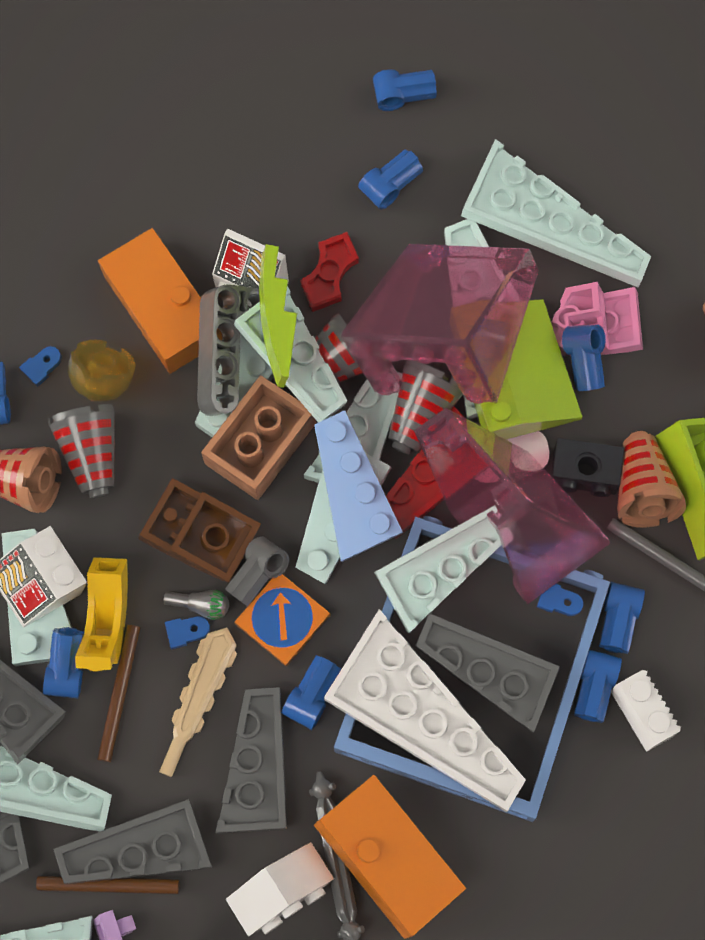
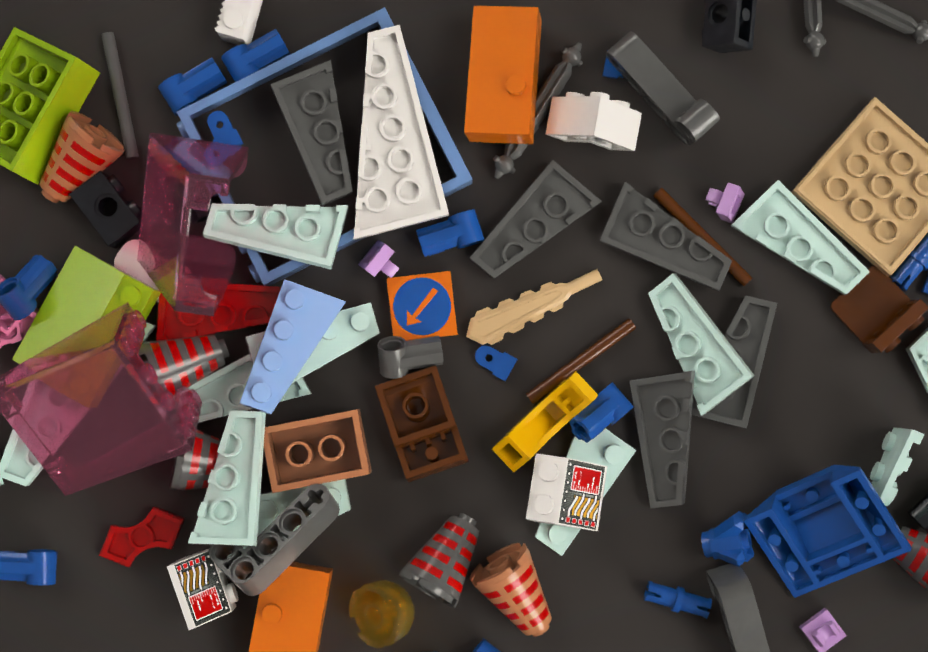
camera: 140 degrees left, 15 degrees up
(209, 604) = (463, 364): flat silver piece -> none
(277, 324) = (228, 509): lime slope -> none
(348, 620) = (378, 259): none -> lavender tile

